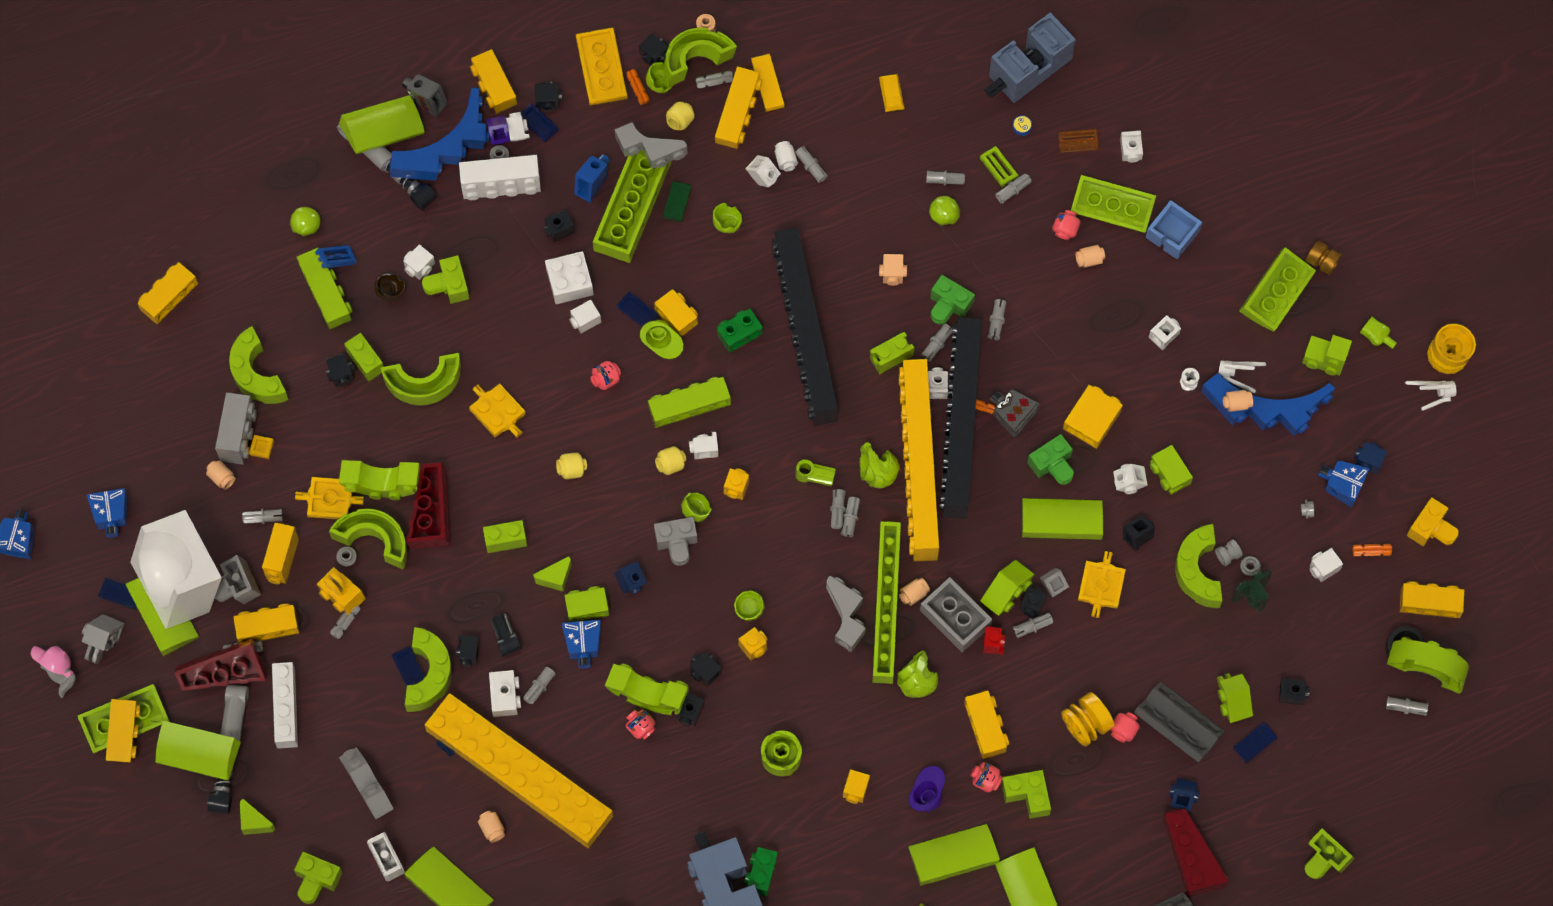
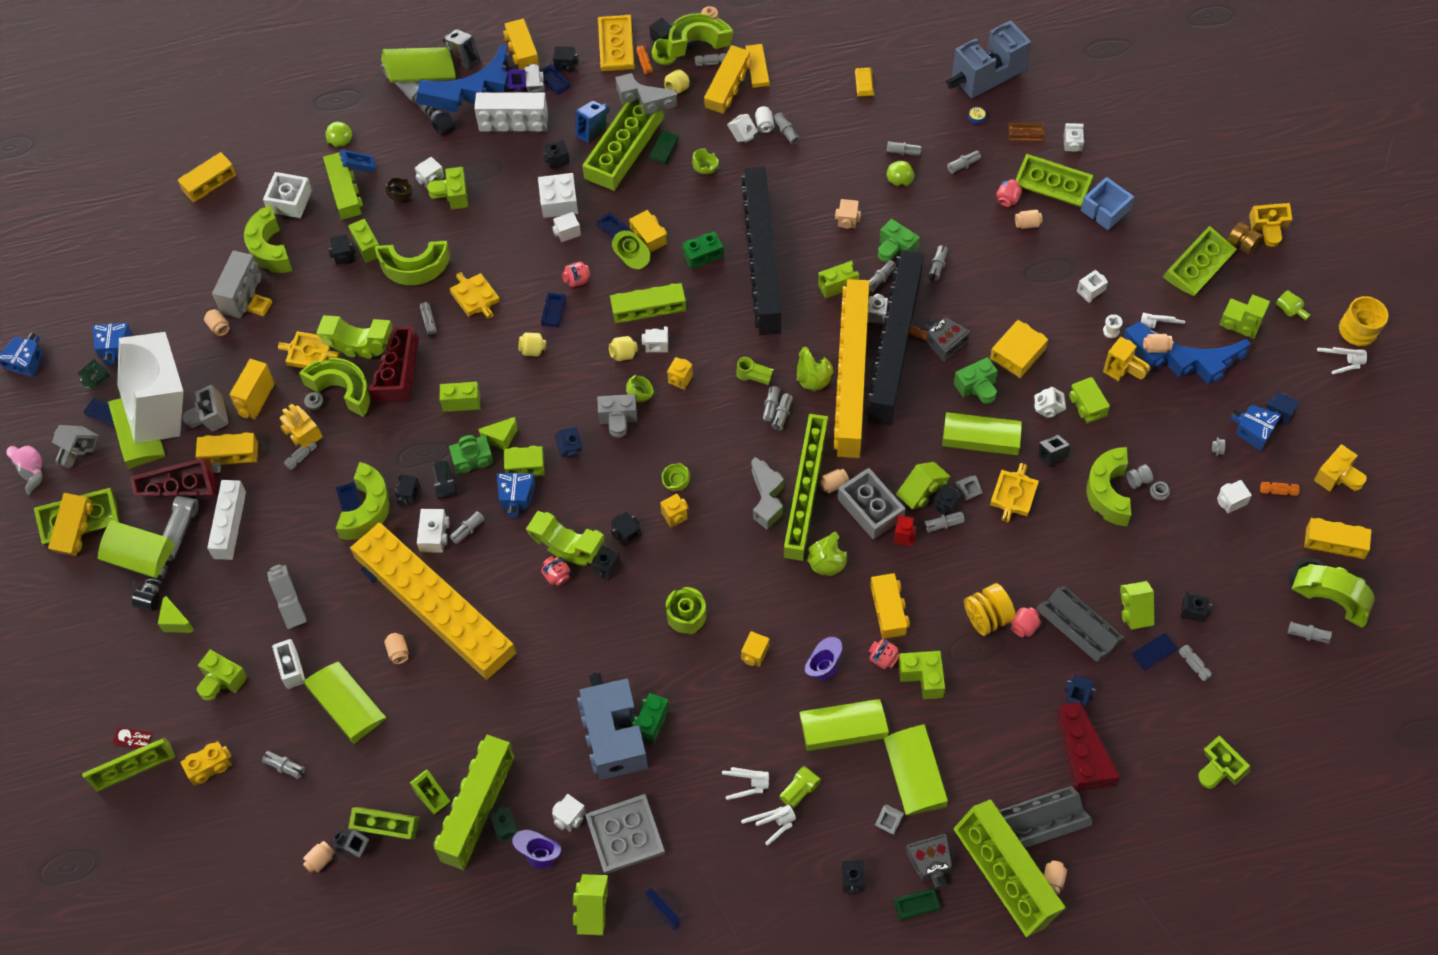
camera: 10 degrees right, 10 degrees down
(103, 545) = (91, 368): none -> clear green brick
(262, 516) = (236, 359): light grey axle -> none
(266, 308) = (288, 194): none -> white brick
(451, 444) = (428, 318): none -> light grey axle
(529, 603) = (471, 454): none -> bright green brick
(586, 419) = (553, 309): none -> clear blue tile
(1014, 175) = (948, 144): lime tile -> none
(1202, 421) = (1122, 360): none -> yellow brick
(1254, 591) = (1162, 510): clear green bracket -> none
(1296, 750) = (1195, 662): none -> light grey axle
(1350, 232) = (1271, 220): none -> yellow brick

